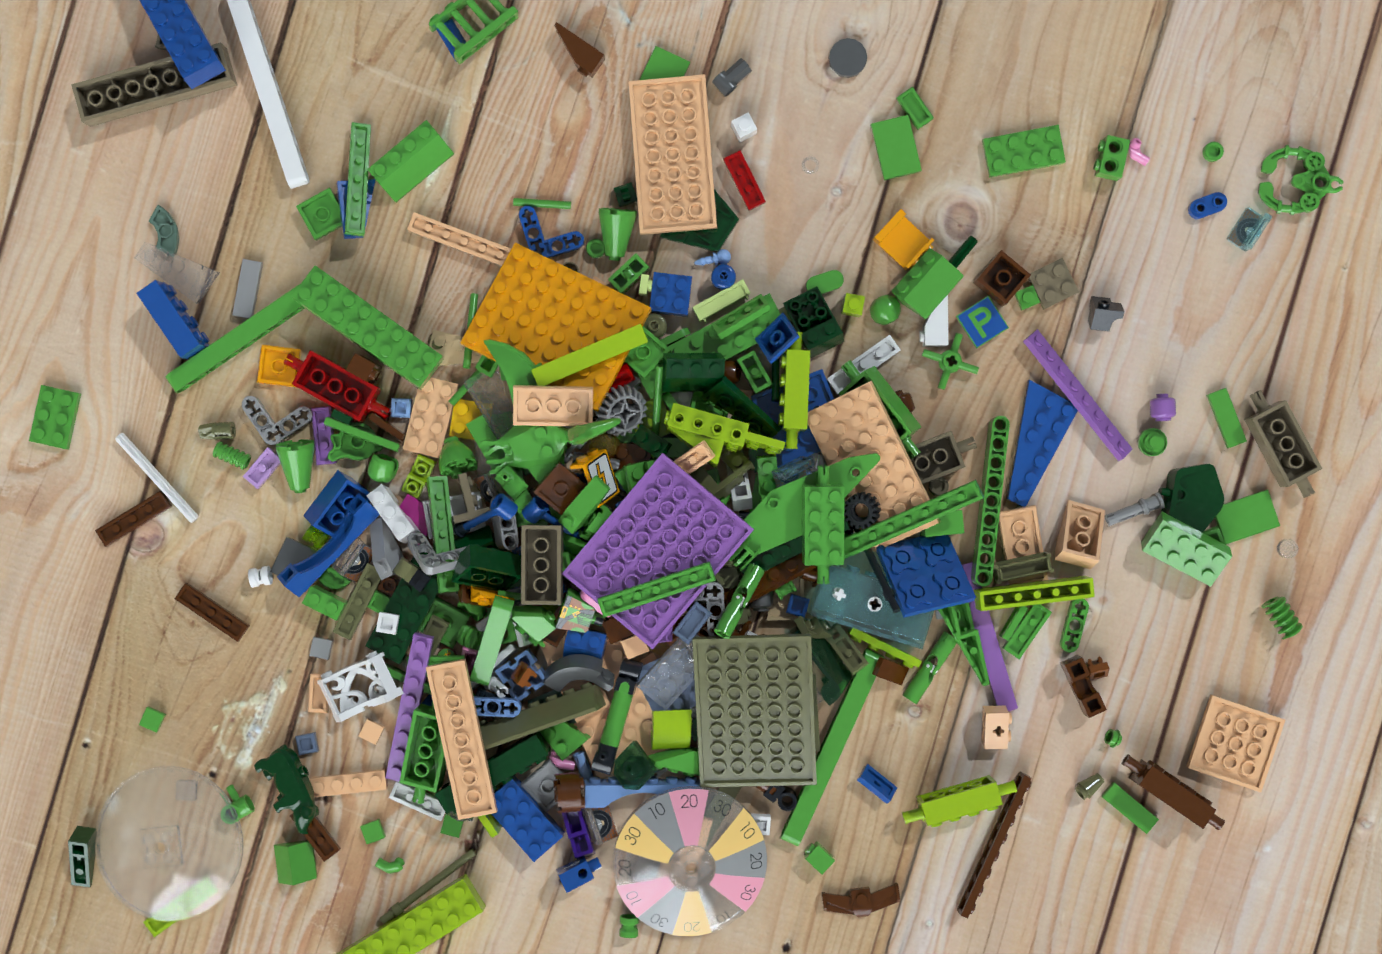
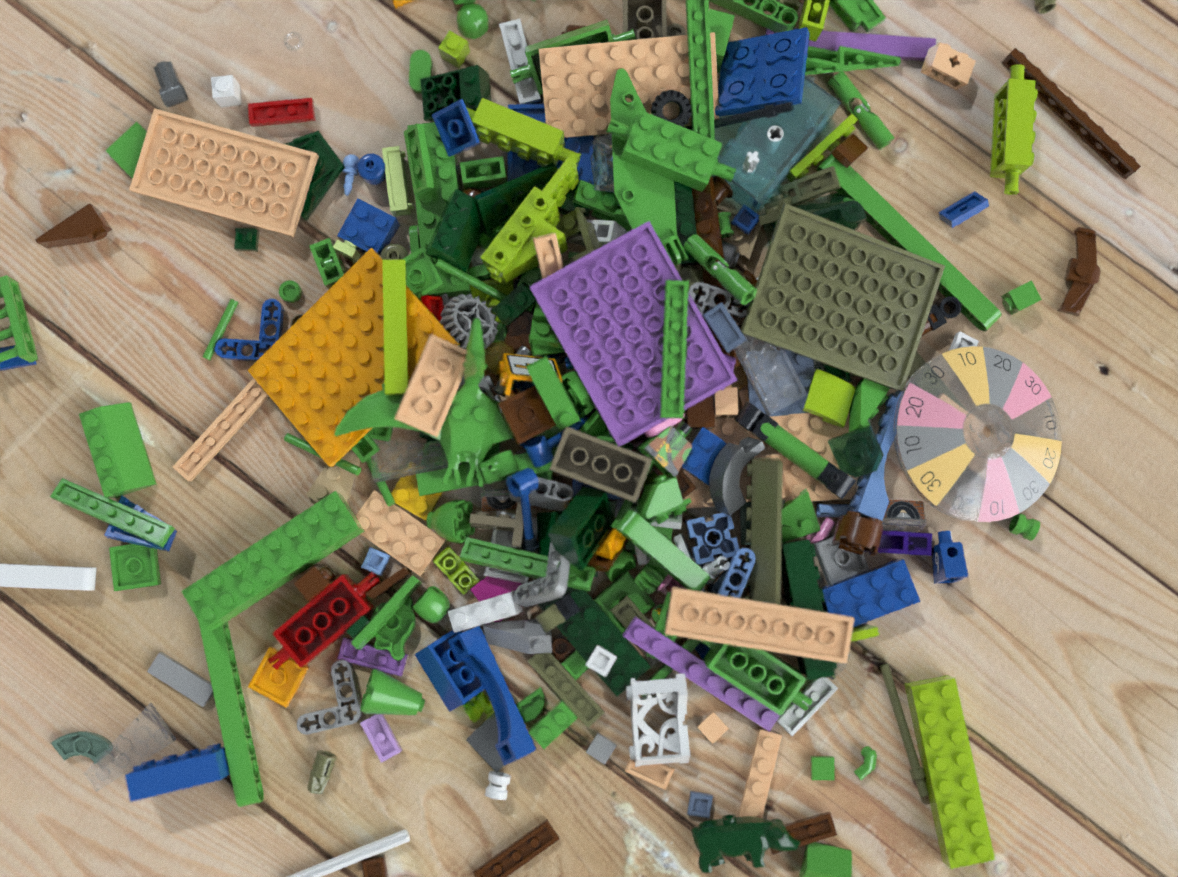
camera: 70 degrees left, 5 degrees down
(231, 455) = (354, 766): bright green piece -> none
(353, 560) = (519, 675): panel -> none
(451, 826) = (848, 679): bright green tile -> none
(522, 674) = (712, 533): dark orange tile -> none
(616, 230) = (278, 260): bright green cone -> none
(775, 380) = (496, 153): dark green bar -> none

